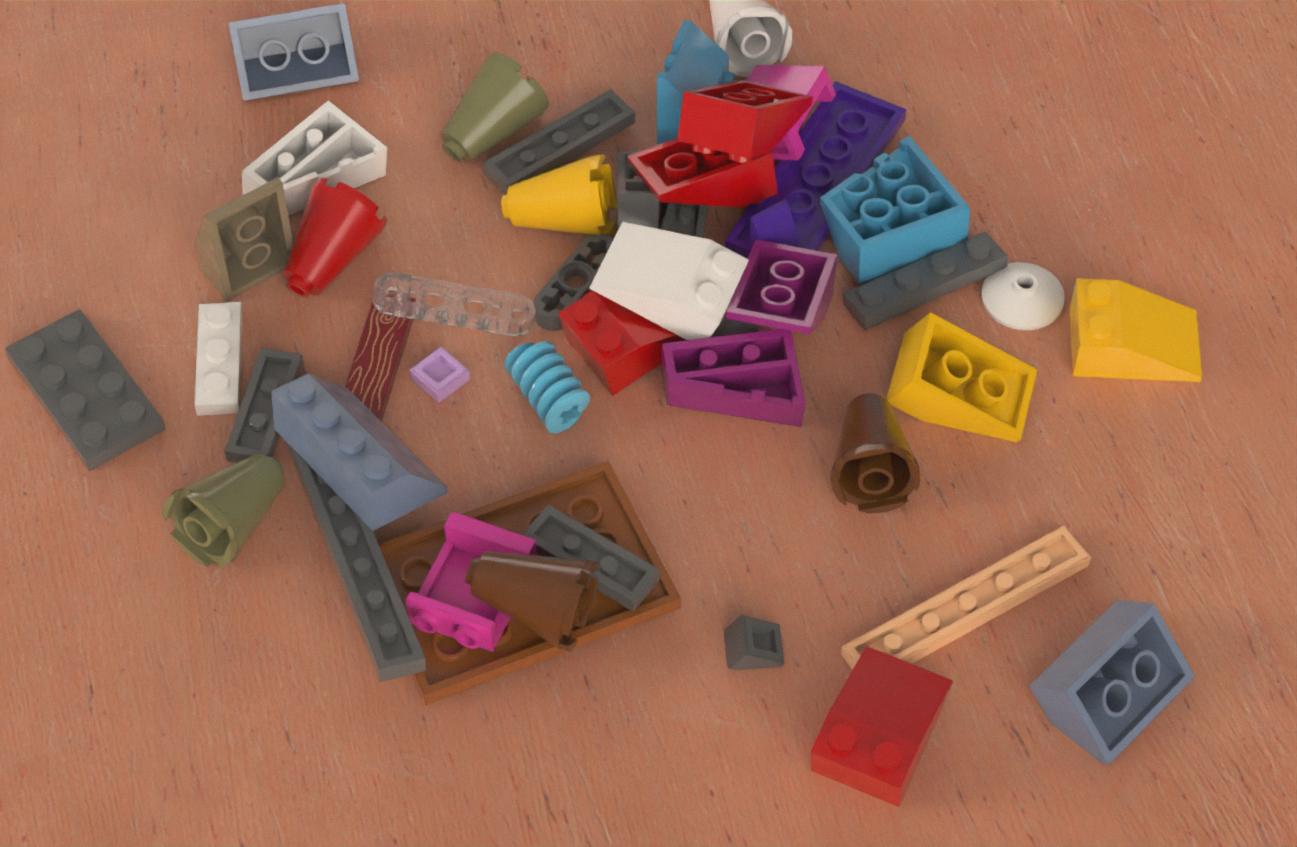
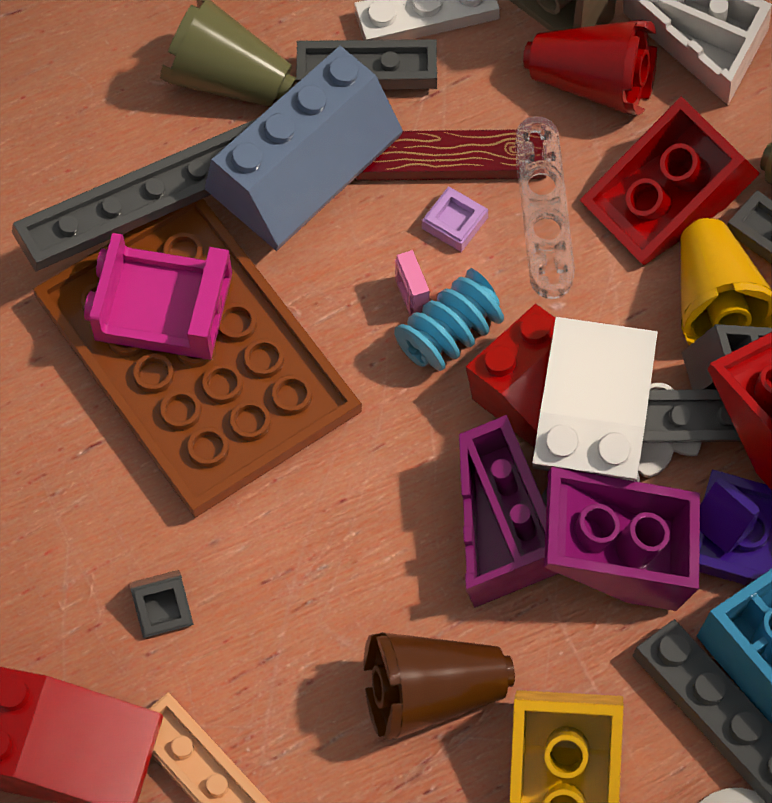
camera: 80 degrees right, 10 degrees up
(457, 216) = (667, 182): none -> red slope
(502, 408) = (411, 282): none -> bright pink tile
(537, 591) = (138, 355): reddish brown cone -> none
(576, 265) = (637, 317): dark grey beam -> none
(621, 573) = (215, 404): dark grey plate -> none

